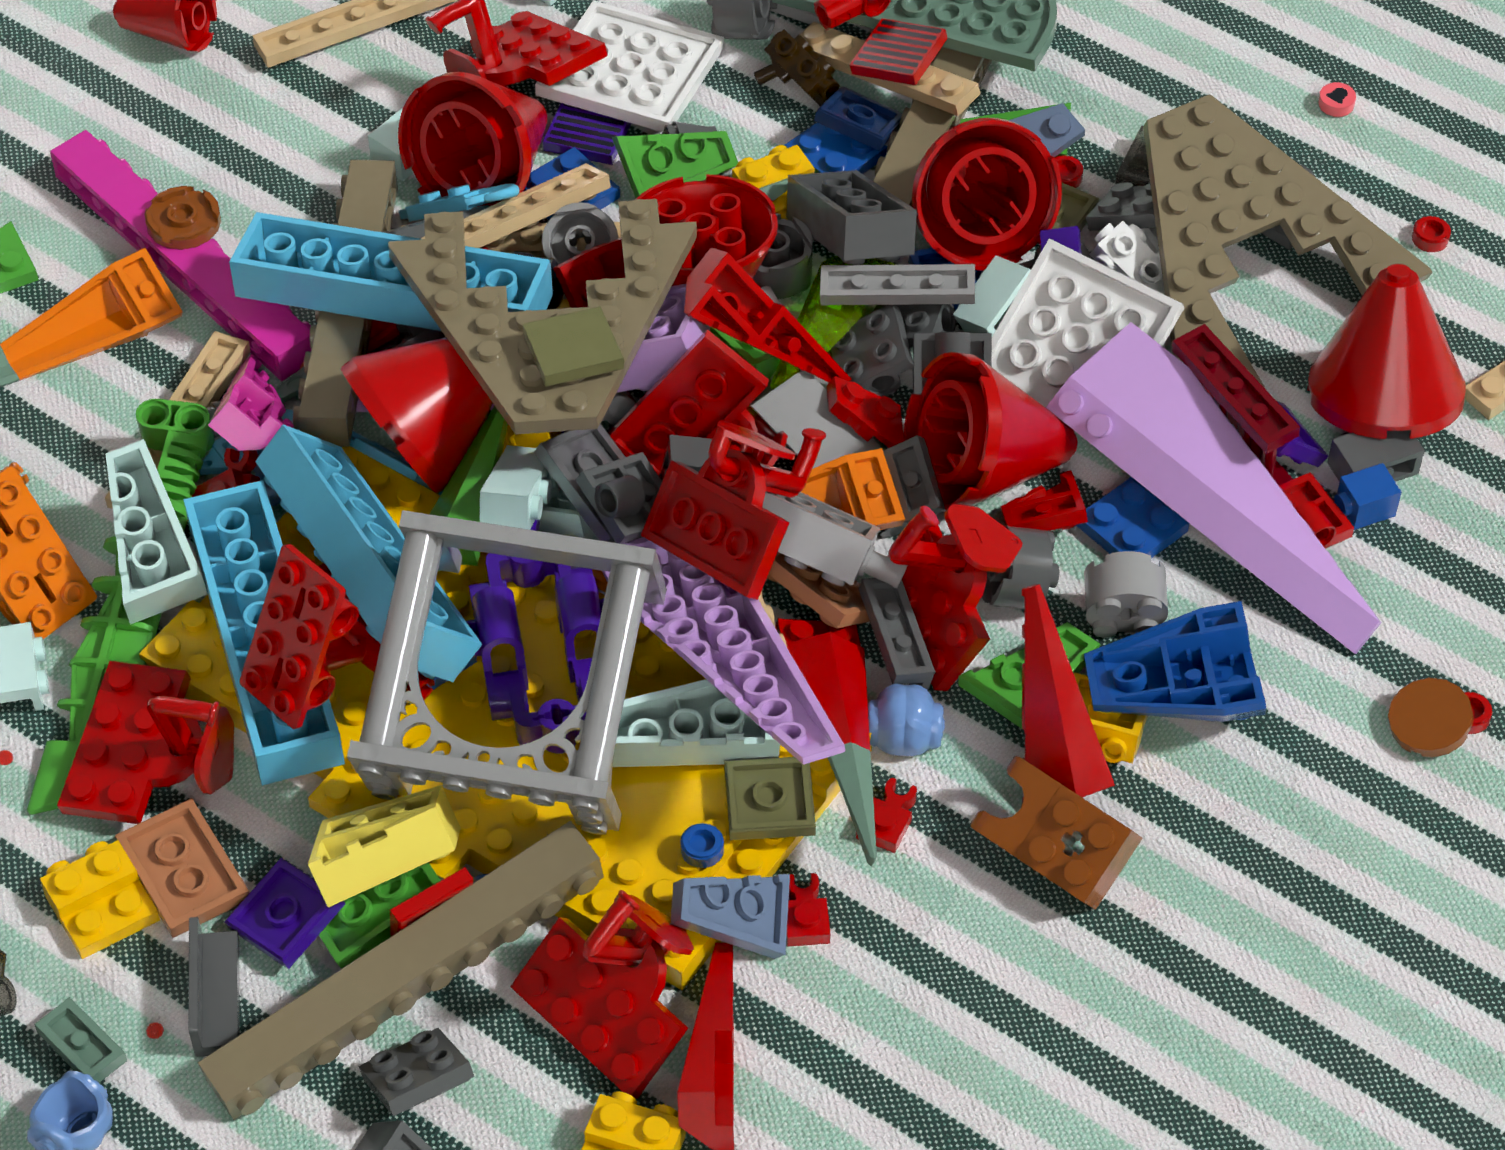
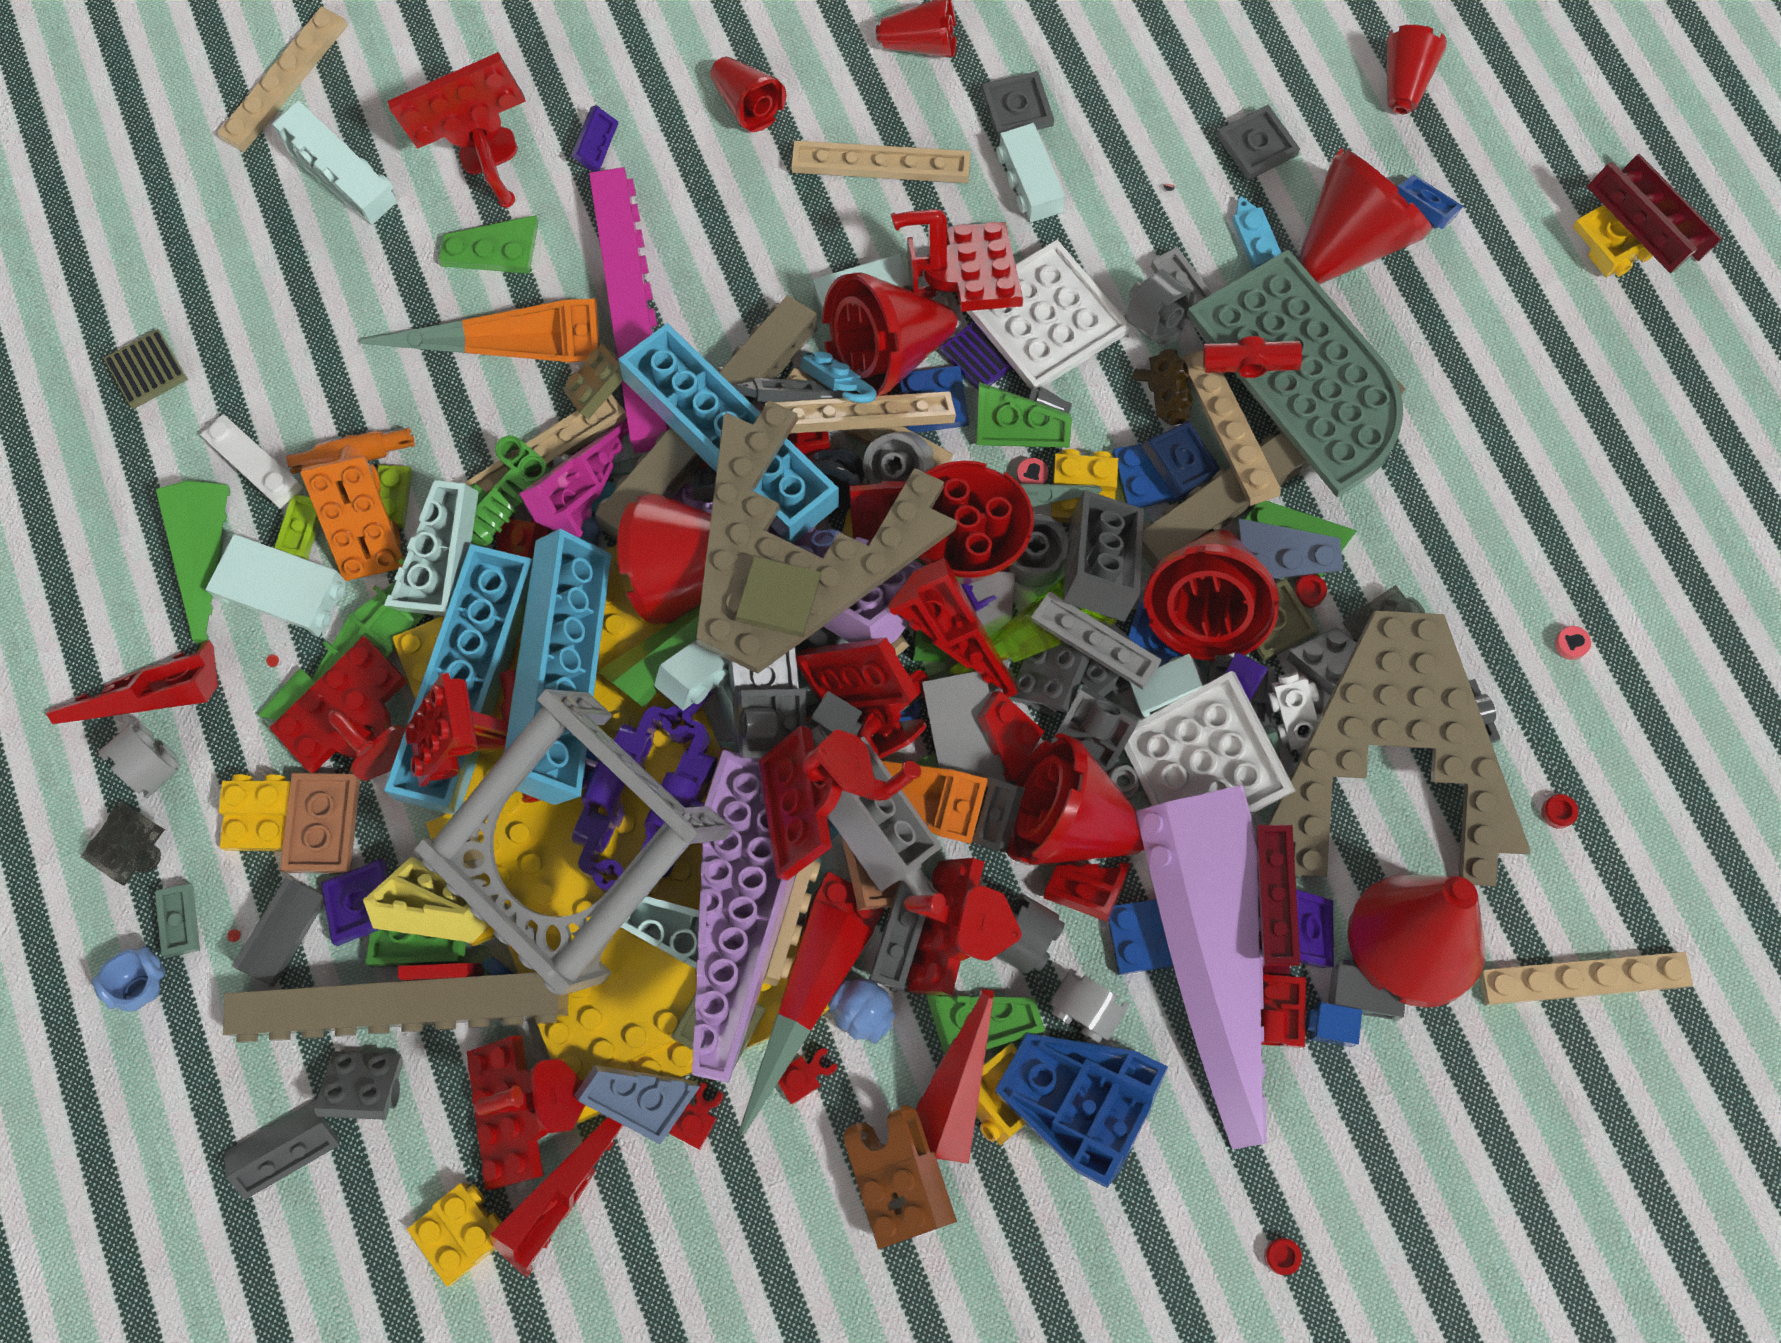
camera: 35 degrees right, 20 degrees up
(27, 127) = (594, 138): none -> dark purple plate
(182, 217) = (639, 284): dark orange tile -> none
(198, 322) = (594, 381): none -> olive plate
(702, 845) = (648, 1033): blue tile -> none
(898, 51) = (1241, 423): tile -> none
(1430, 717) = (1246, 1246): dark orange tile -> none

